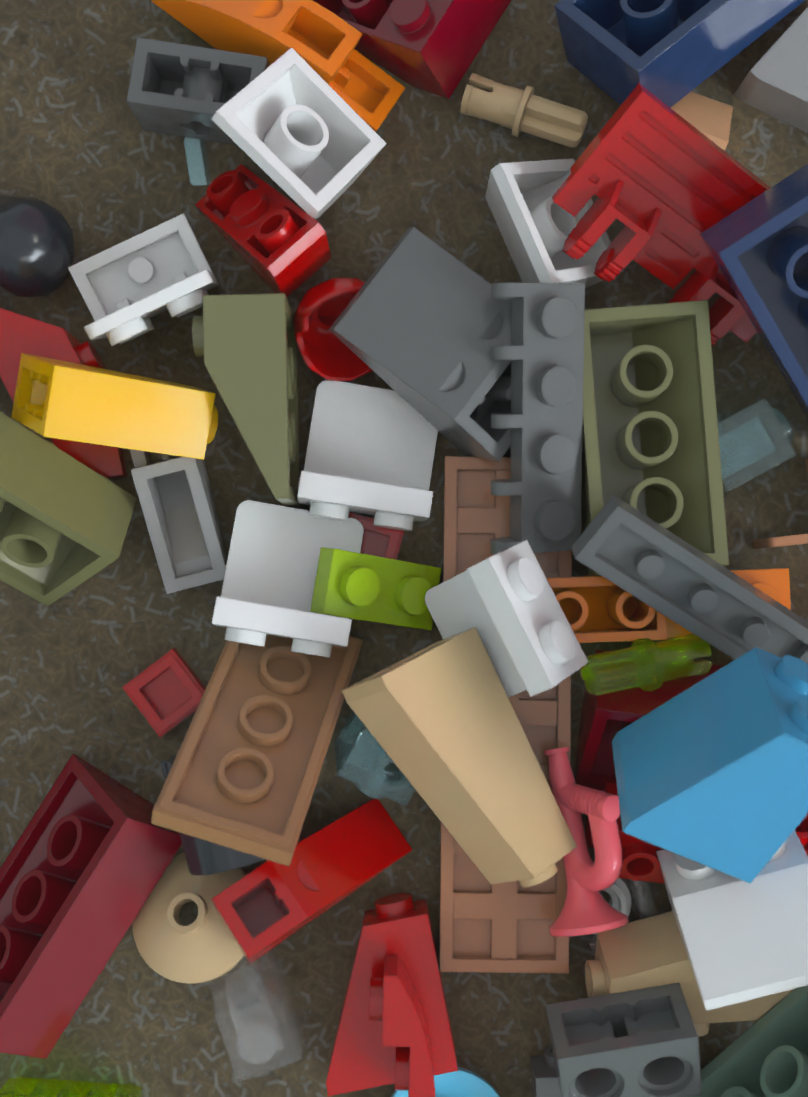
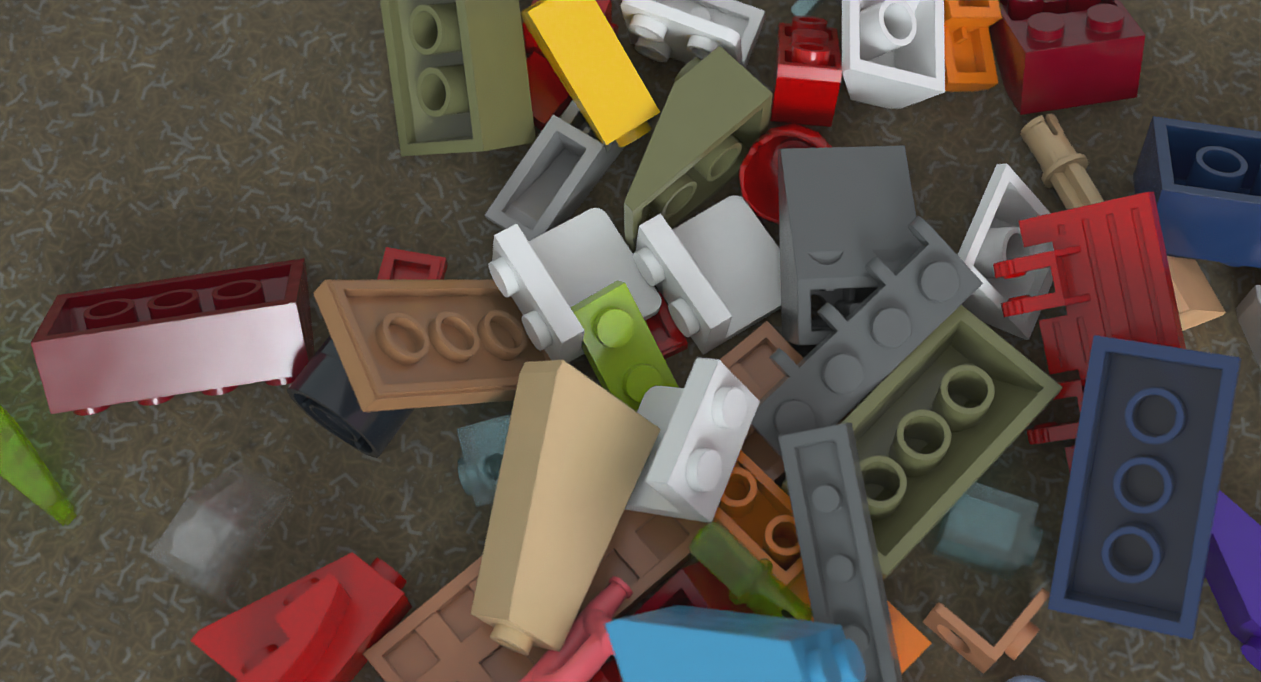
camera: 45 degrees right, 20 degrees down
(193, 951) = (245, 455): tan dish -> none
(323, 871) = (353, 480): red slope -> none

